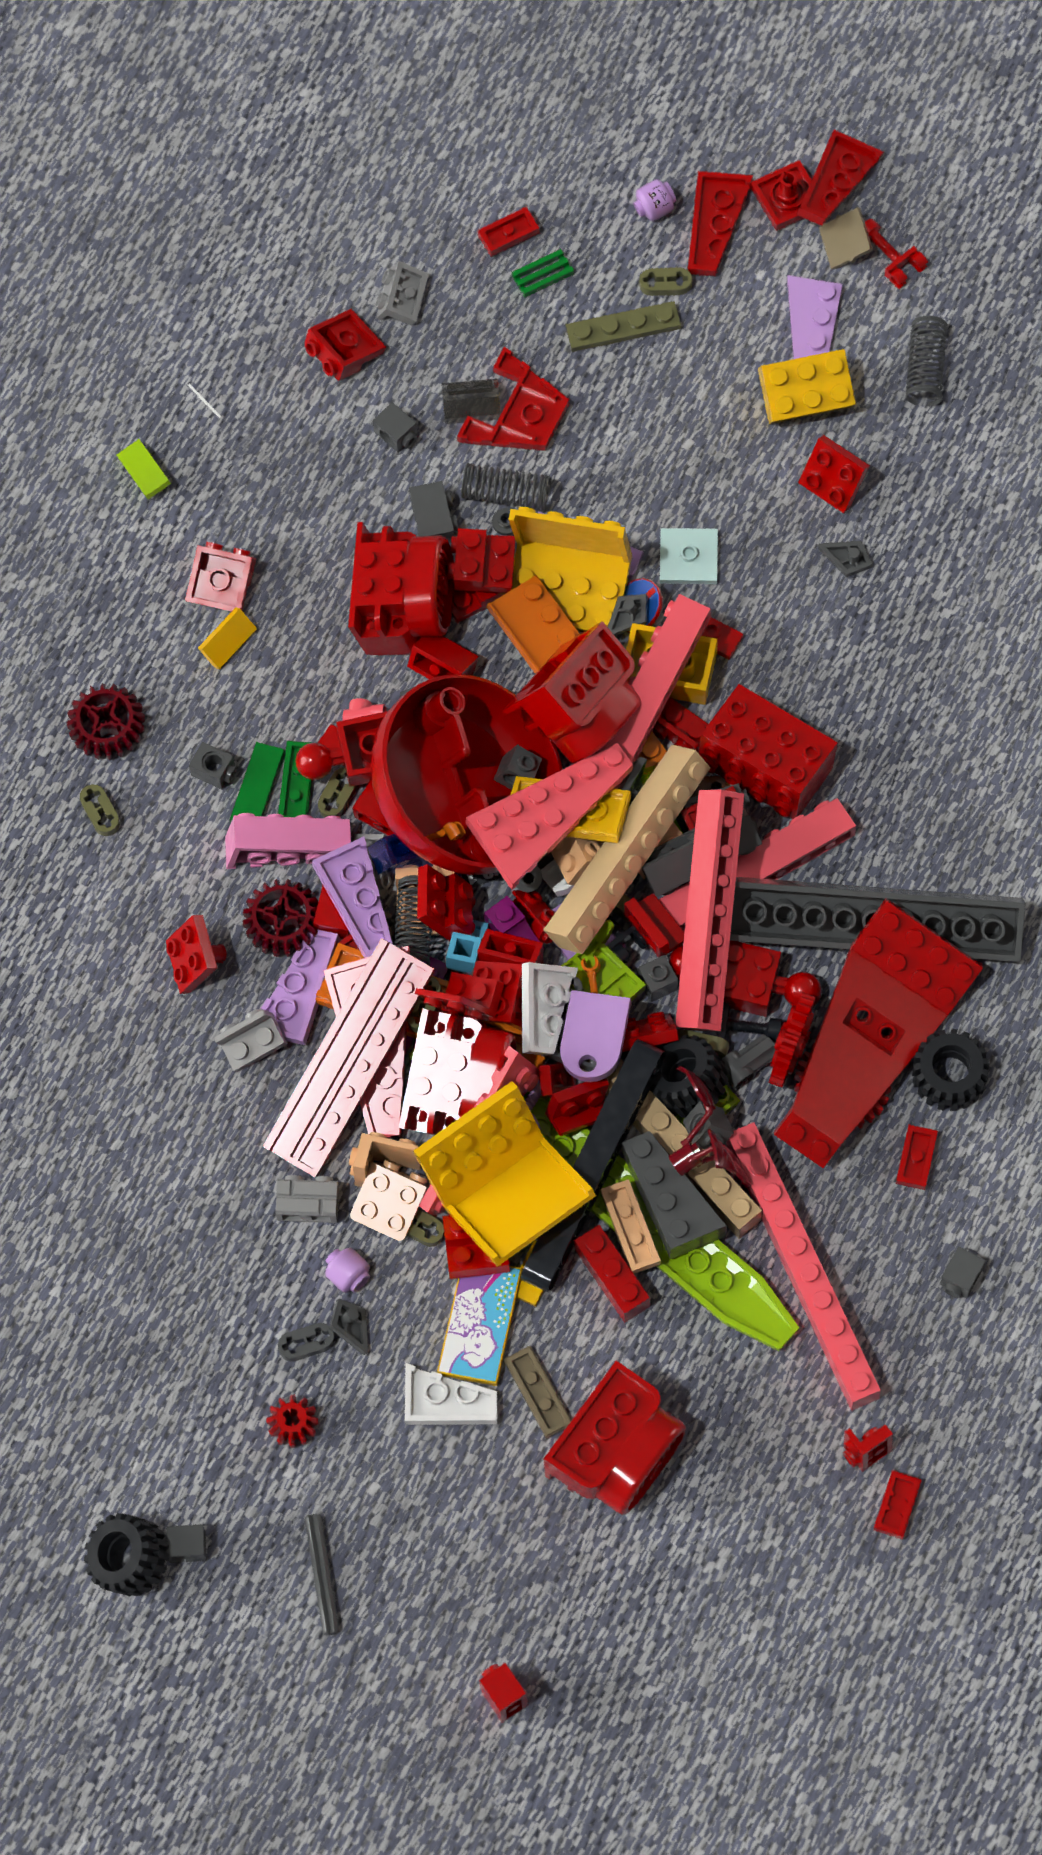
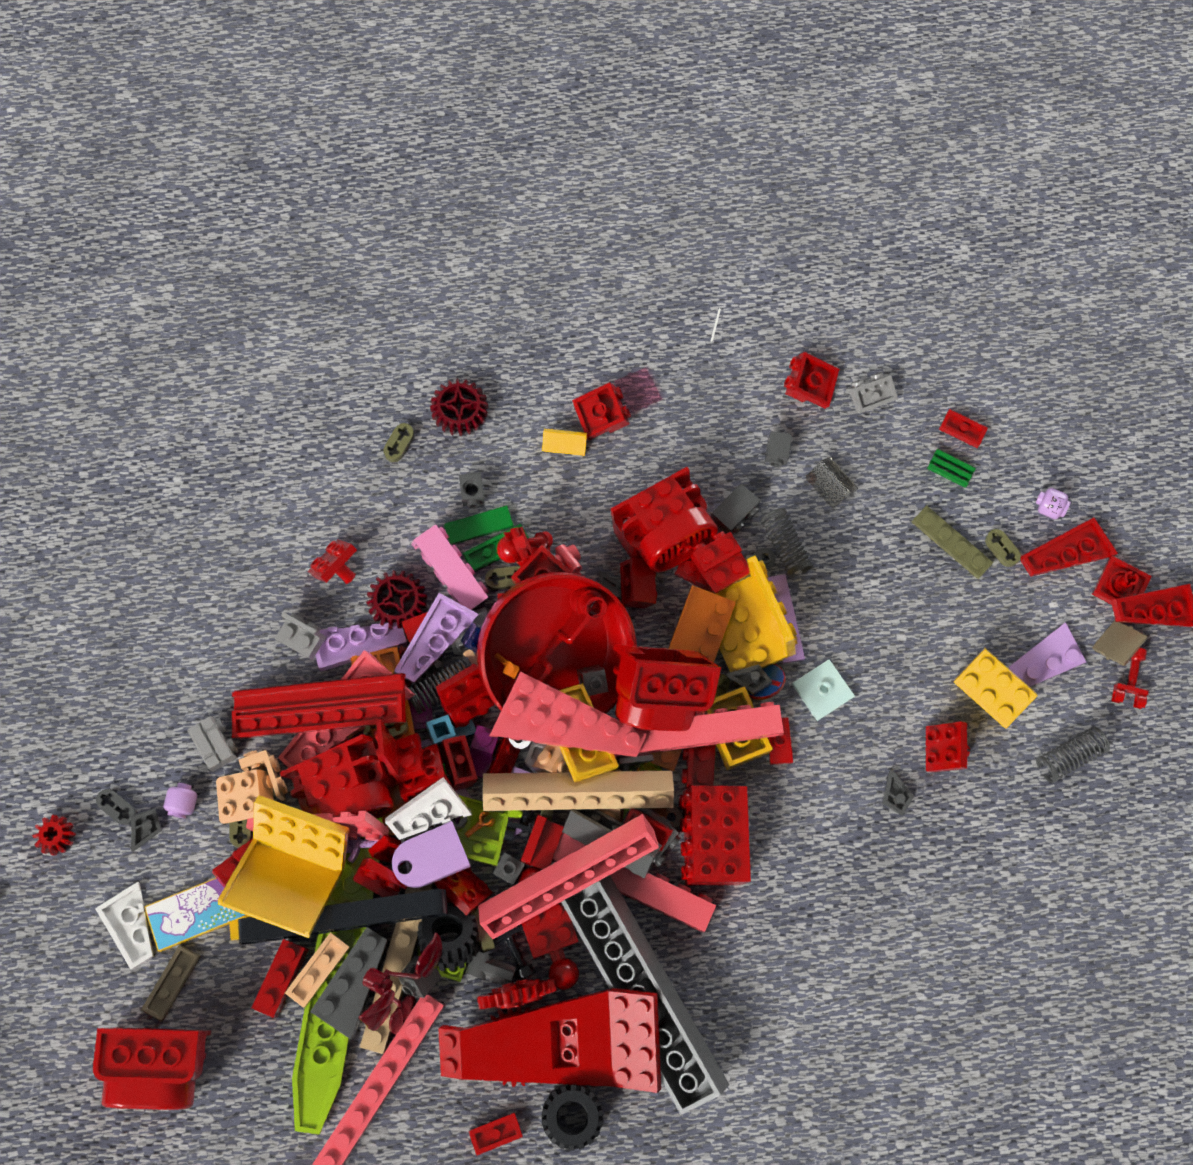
camera: 45 degrees right, 5 degrees up
(143, 469) = (642, 318): lime slope -> none
(221, 526) = (638, 390): none -> clear pink piece
(322, 737) = (524, 544): none -> red bar
(528, 416) = (846, 524): red wing -> none

